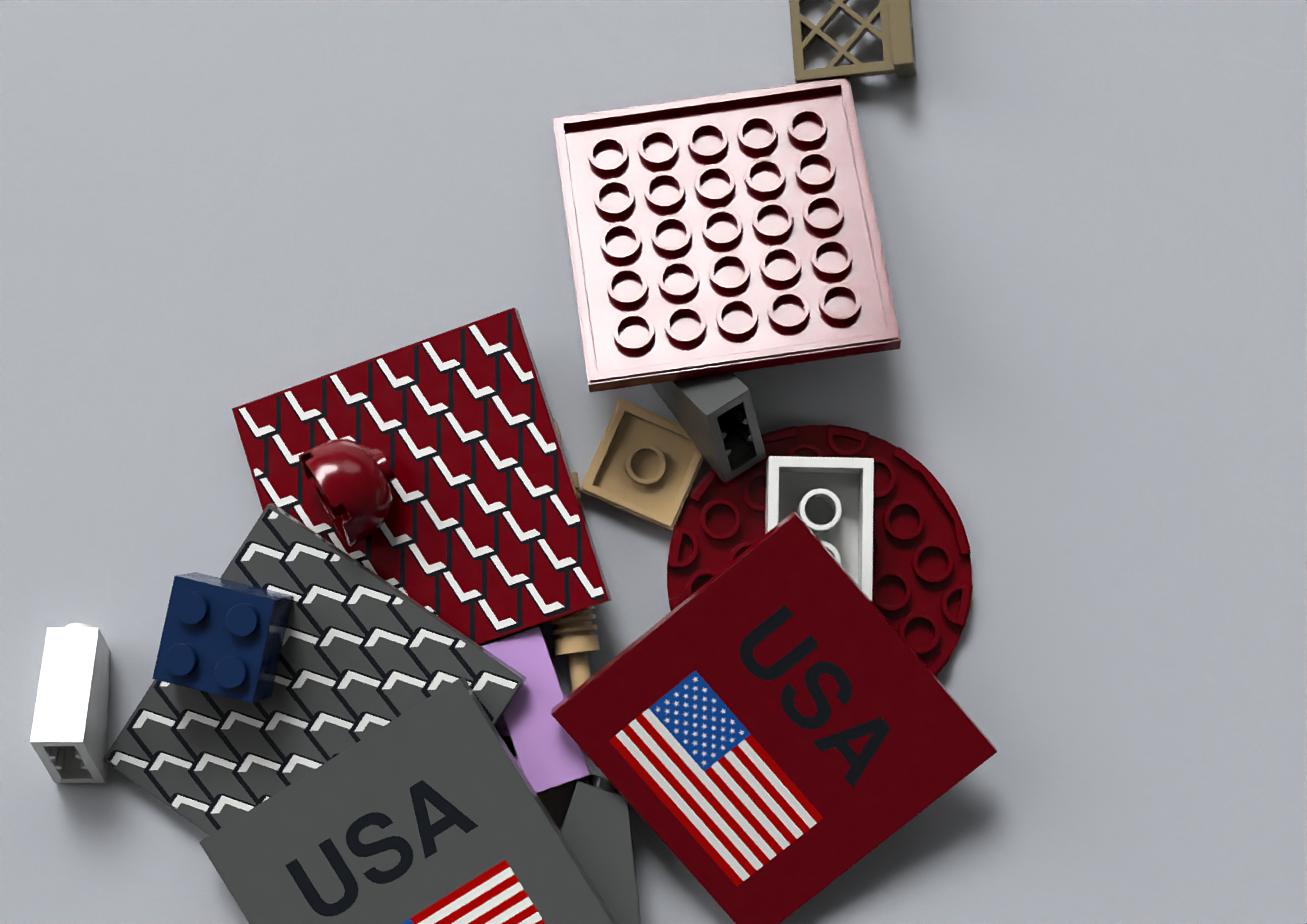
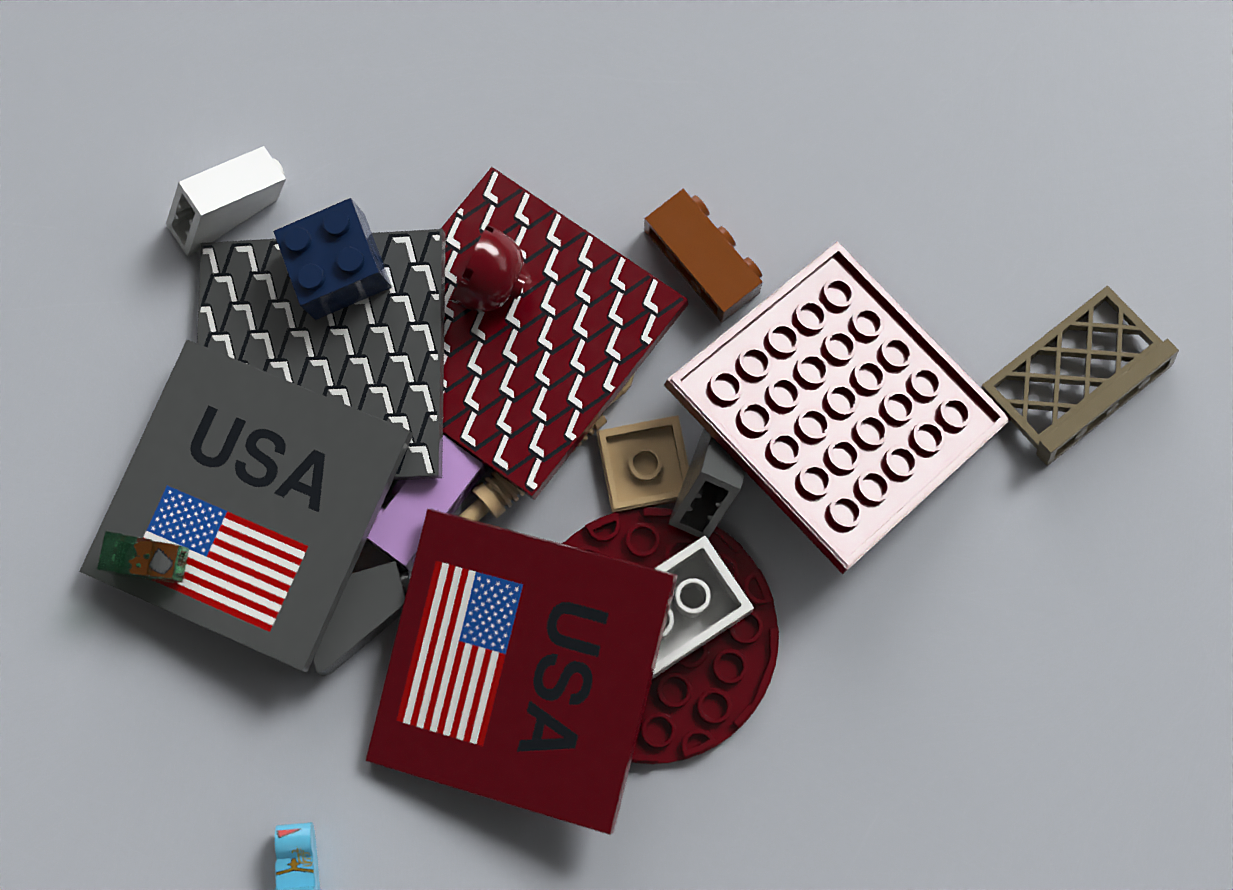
camera: 50 degrees right, 5 degrees down
(474, 259) = (703, 254): none -> dark orange brick

